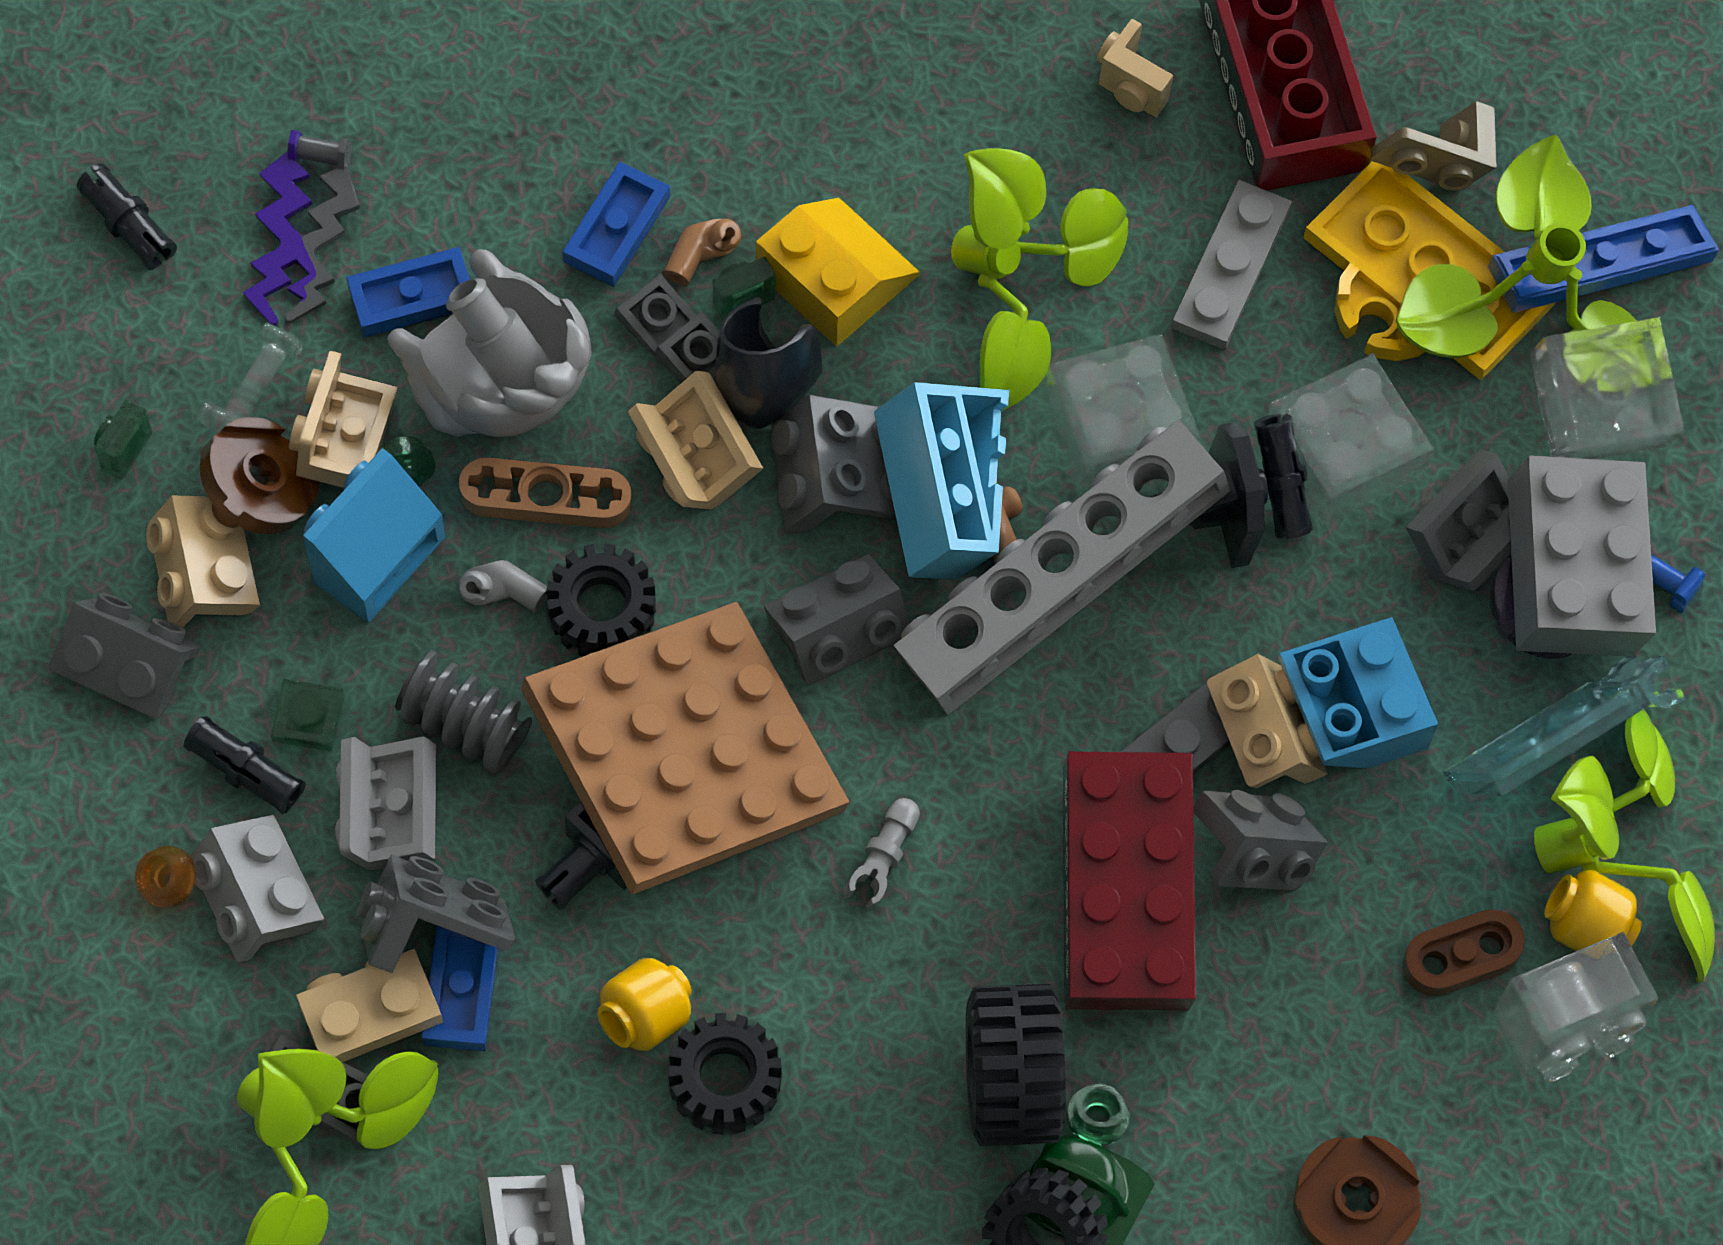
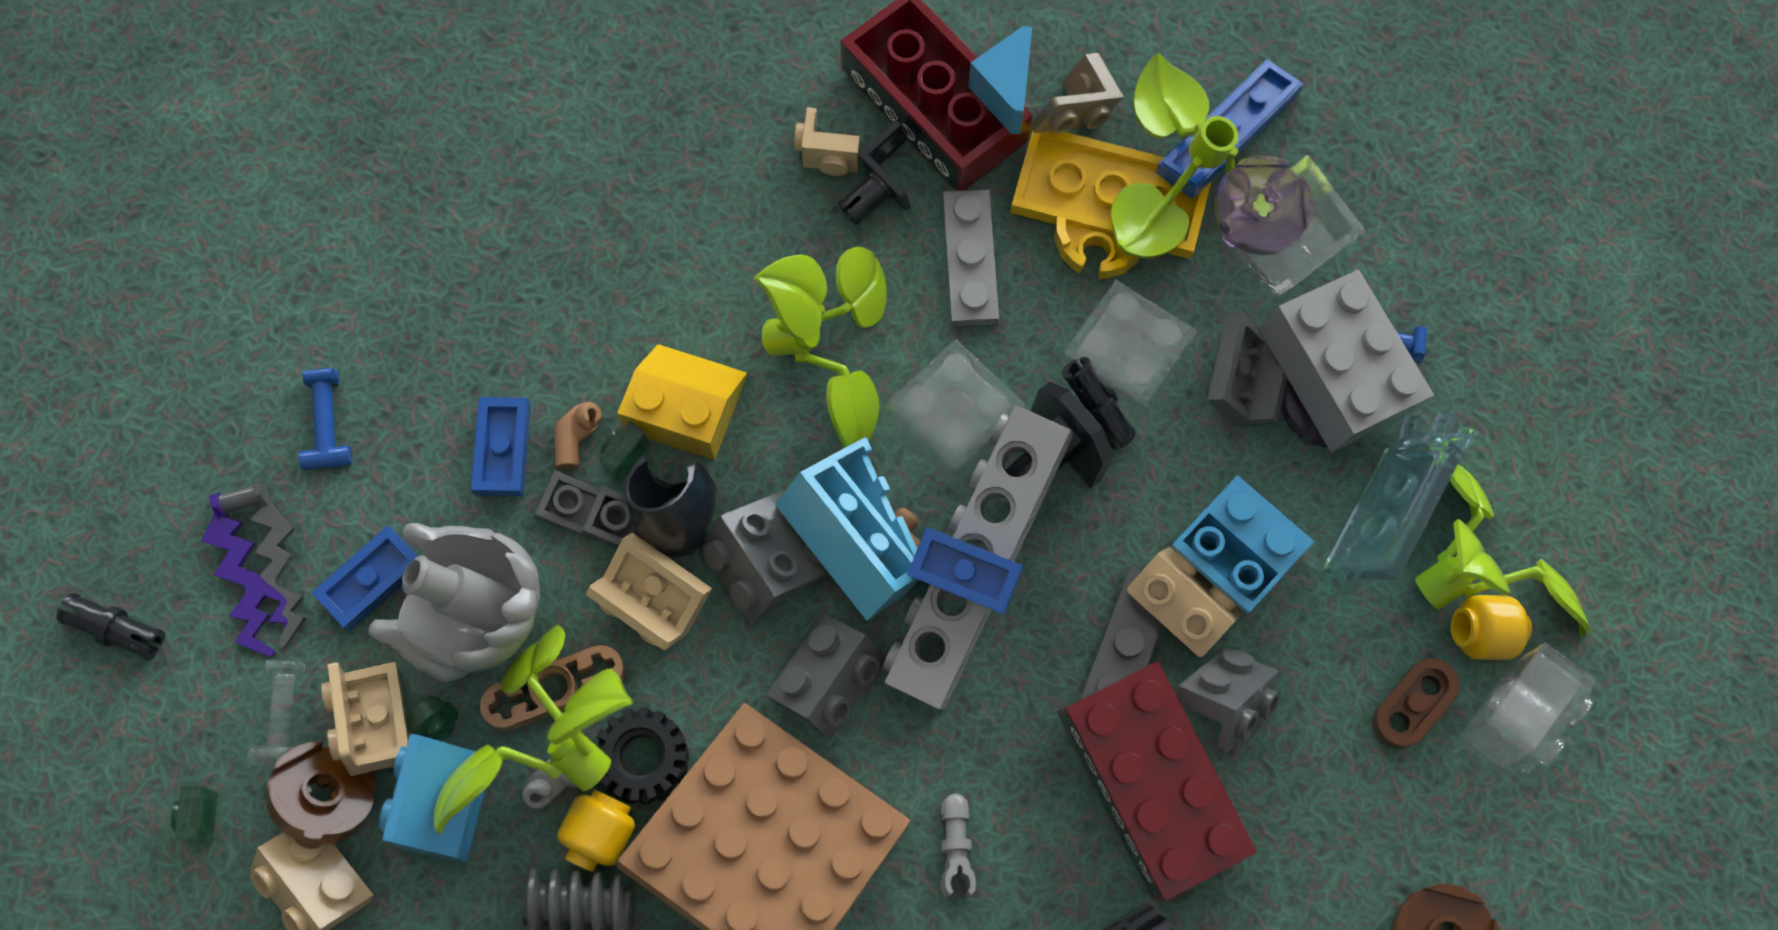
camera: 25 degrees left, 5 degrees up
(430, 147) = (325, 452): none -> blue piece
(516, 646) = (596, 830): none -> yellow head
(533, 548) = (570, 749): none -> lime plant
(1035, 562) = (965, 570): none -> blue plate
(1168, 139) = (878, 183): none -> black bracket
(1361, 78) = (1001, 78): none -> dark azure slope
(1604, 333) = (1243, 225): none -> clear purple plate

